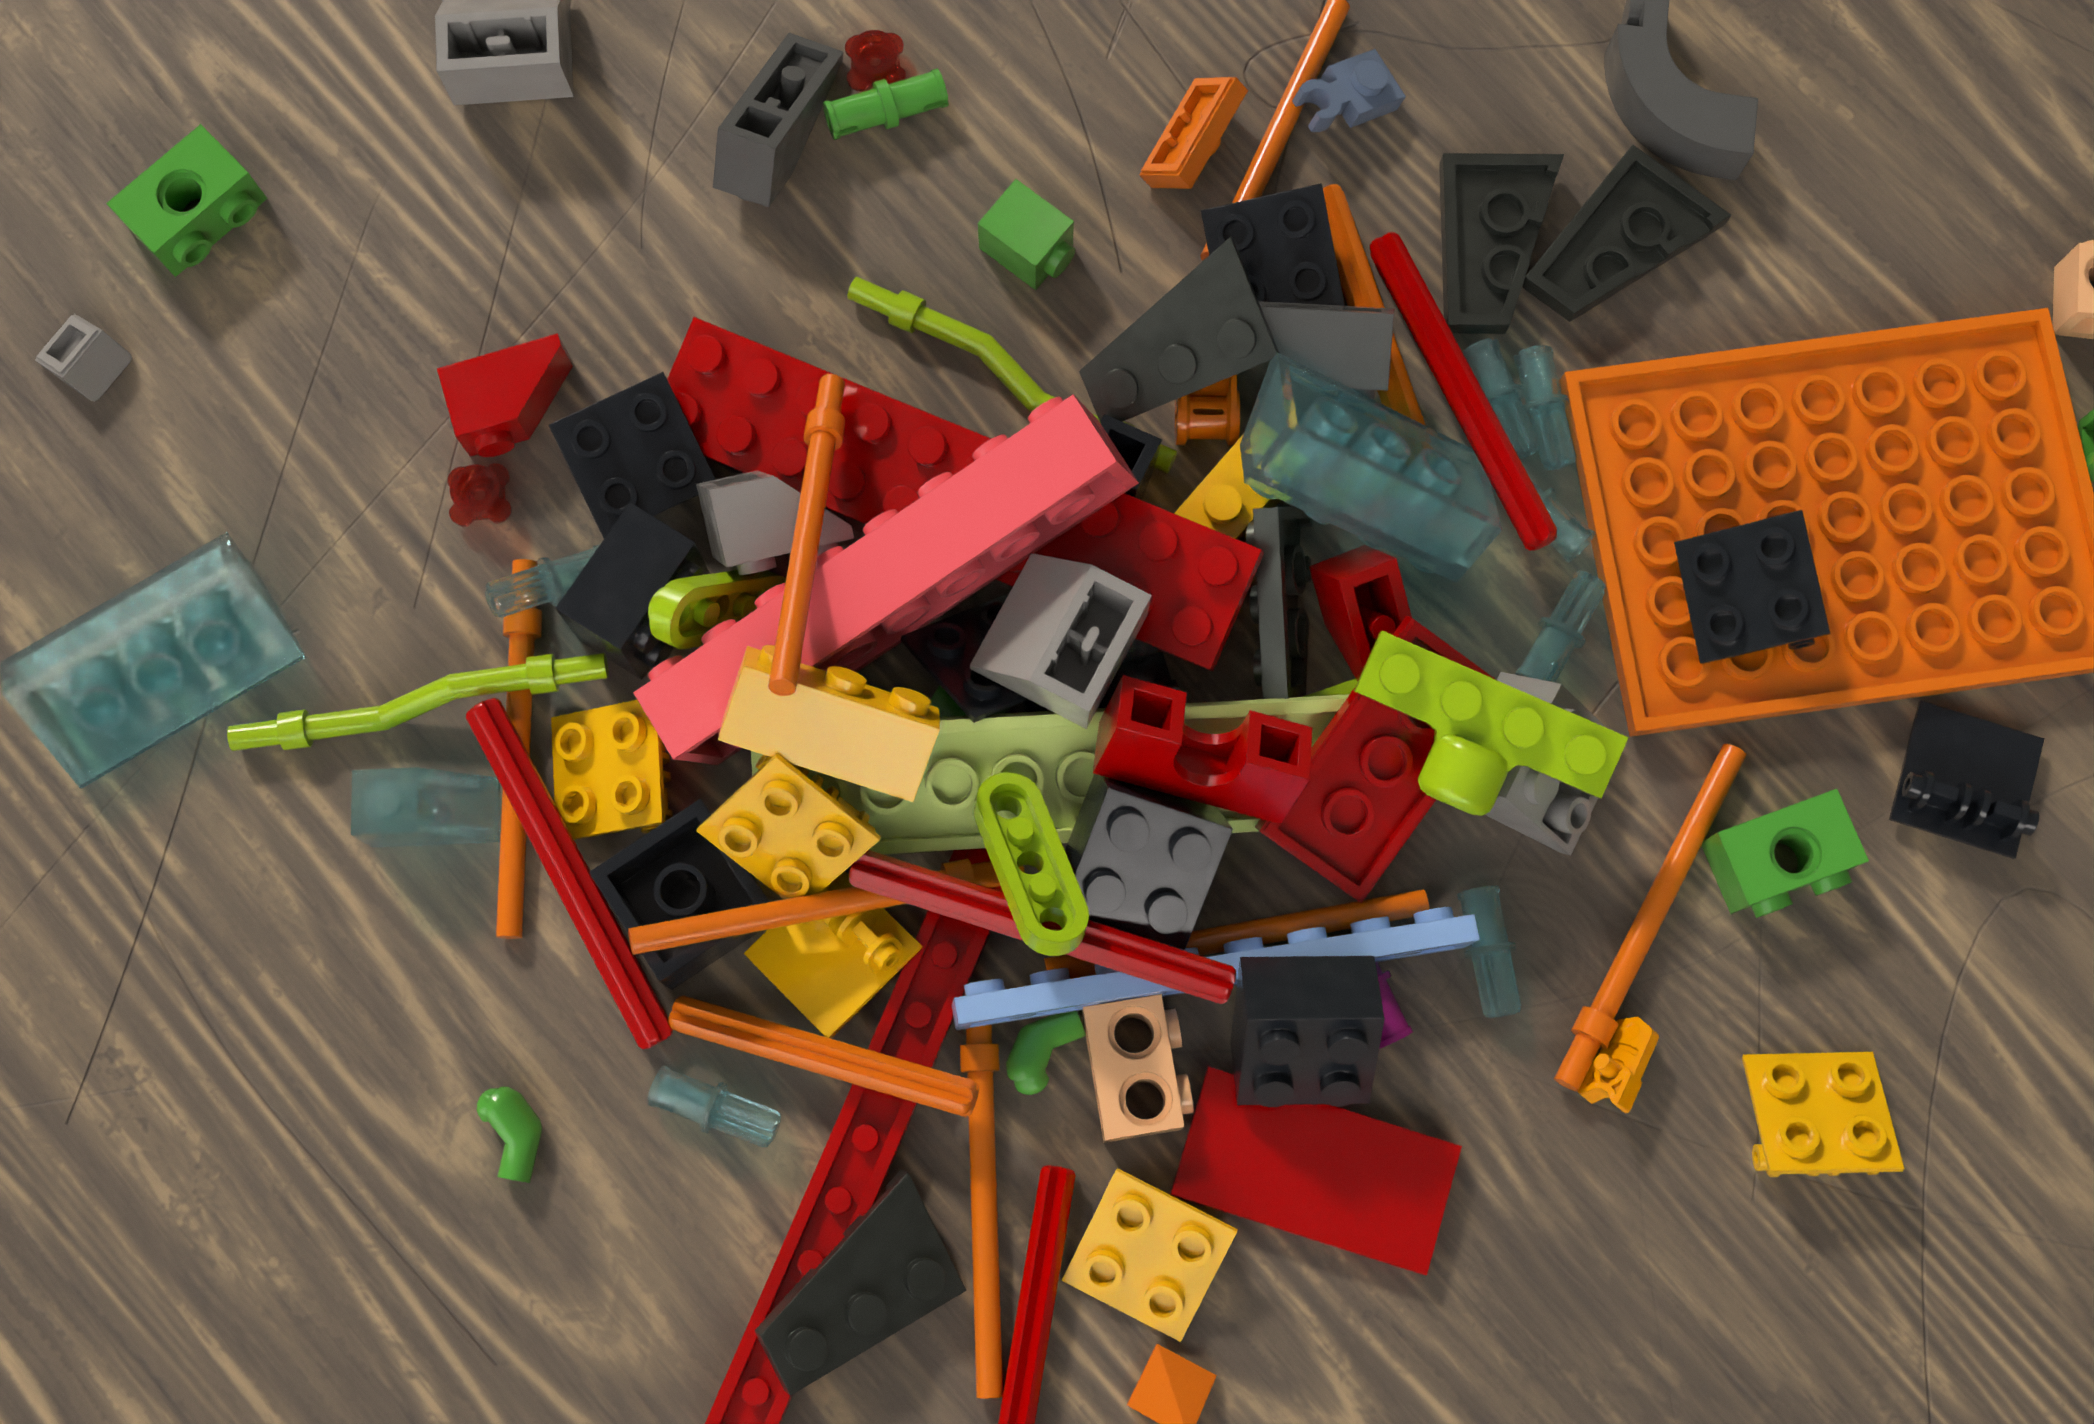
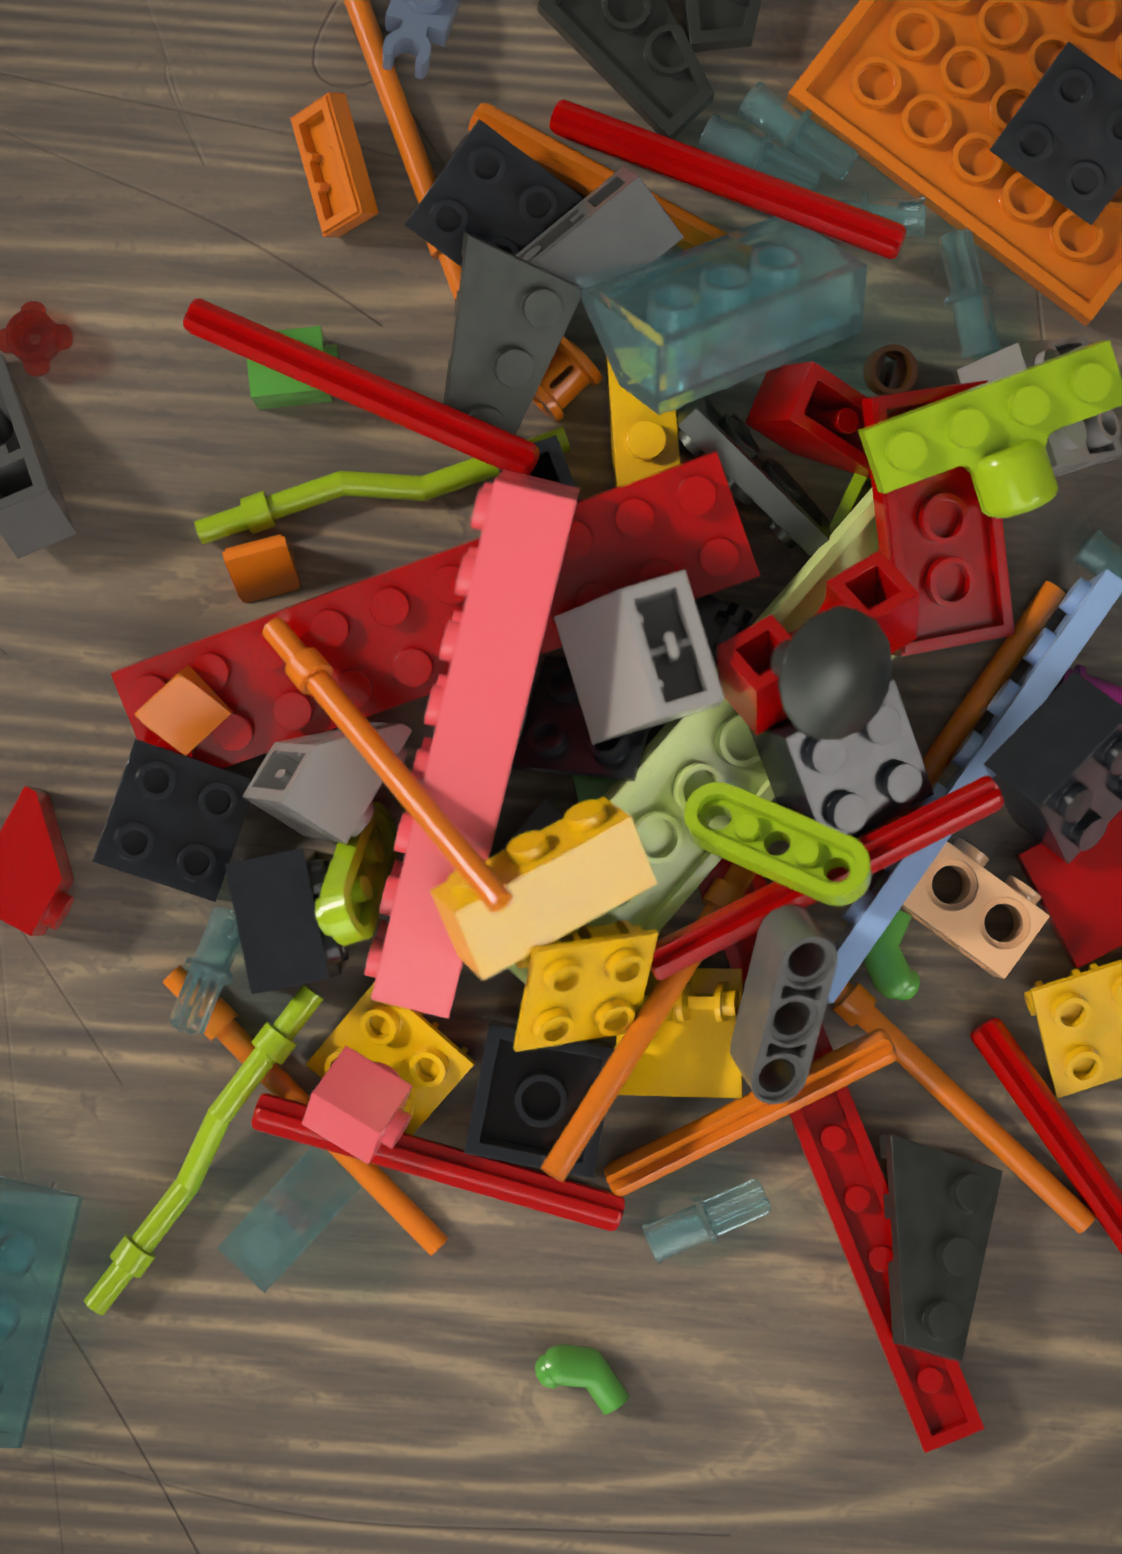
camera: 45 degrees left, 10 degrees up
(468, 480) = (66, 959): clear red plate -> none
(551, 767) = (359, 1105): none -> coral brick
(714, 382) = (184, 711): none -> orange slope
(871, 349) = (262, 568): none -> orange slope
(885, 104) = (79, 365): bright green pin -> none
(908, 1013) = (783, 1004): none -> dark grey beam
(1057, 283) = (360, 388): none -> red axle
(1187, 770) = (833, 673): none -> pearl dark grey dish
(1463, 639) = (900, 374): none -> reddish brown hinge

